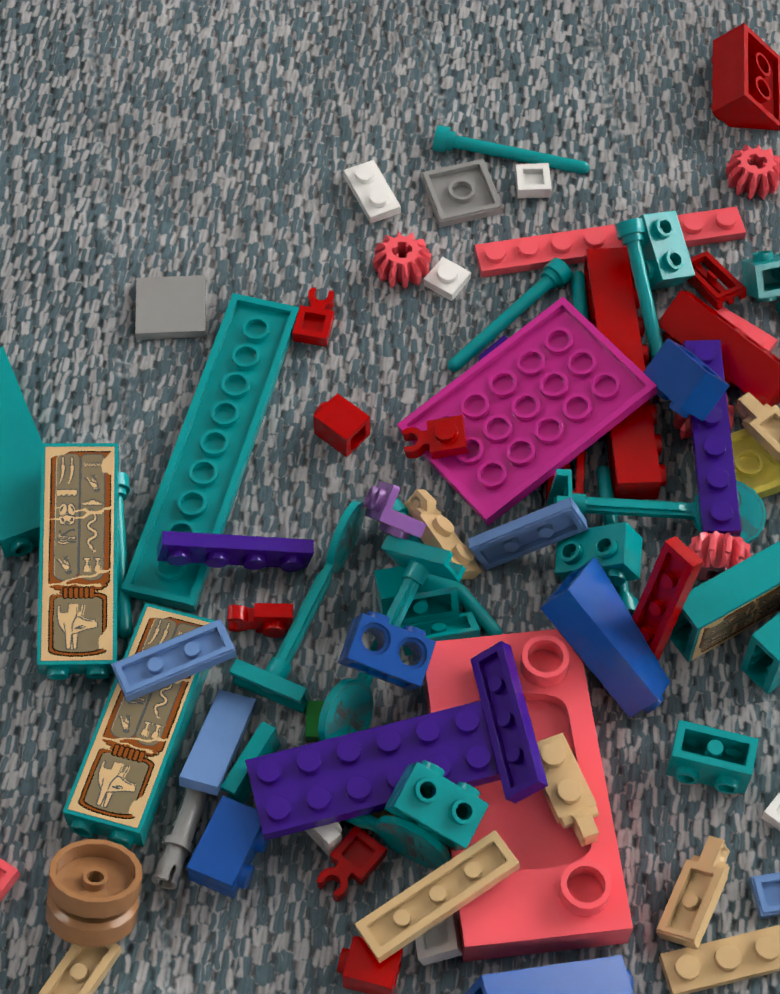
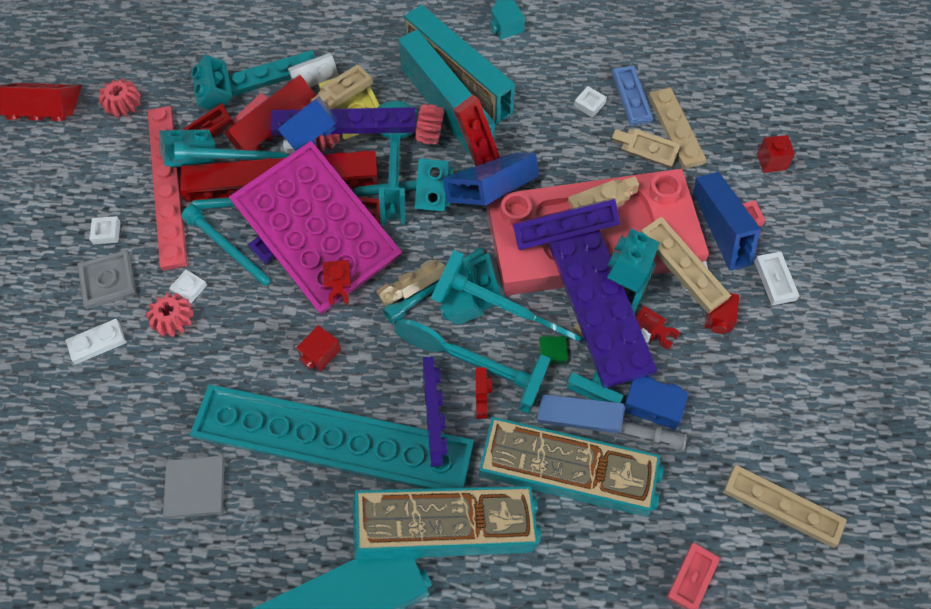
camera: 90 degrees left, 5 degrees up
(93, 892) = (710, 480): medium nougat wheel -> none
(173, 660) = (528, 443): medium blue tile -> none
(316, 321) = (222, 373): red plate -> none
(379, 507) = (409, 297): medium lavender bracket -> none
(385, 661) = (522, 295): blue brick -> none
(448, 140) = (56, 286): teal piece -> none
(528, 533) = (418, 222): medium blue tile -> none
(712, 757) = (564, 128): teal brick -> none

